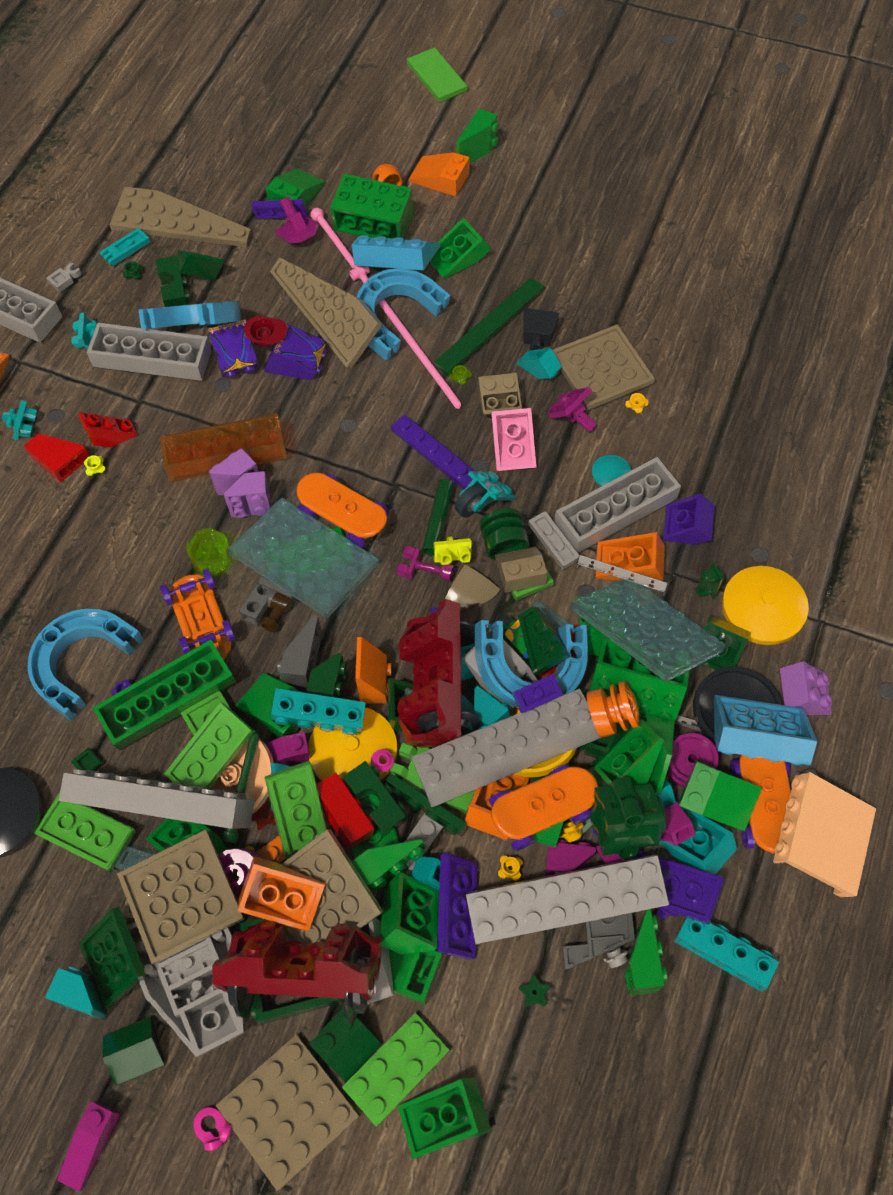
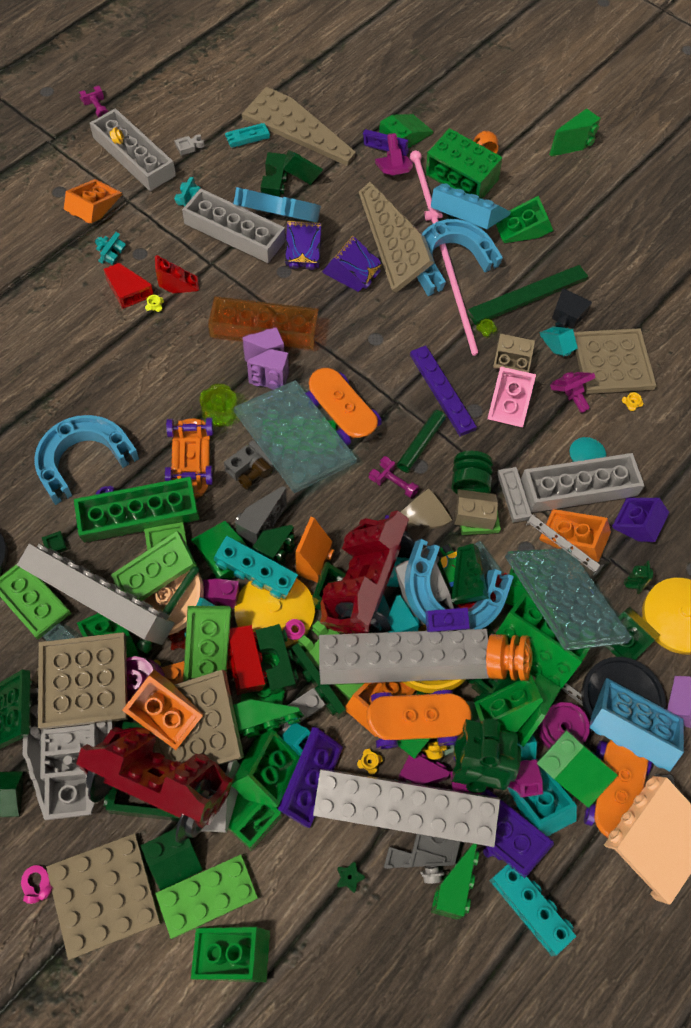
camera: 15 degrees right, 0 degrees up
(132, 270) = (246, 155): dark green plate -> none
(265, 330) = (333, 237): dark red piece -> none
(437, 74) = (562, 71): bright green tile -> none
(442, 172) = (535, 154): orange slope -> none
(452, 550) = (423, 473): neon yellow hips -> none
(480, 492) = (466, 431): teal plate -> none

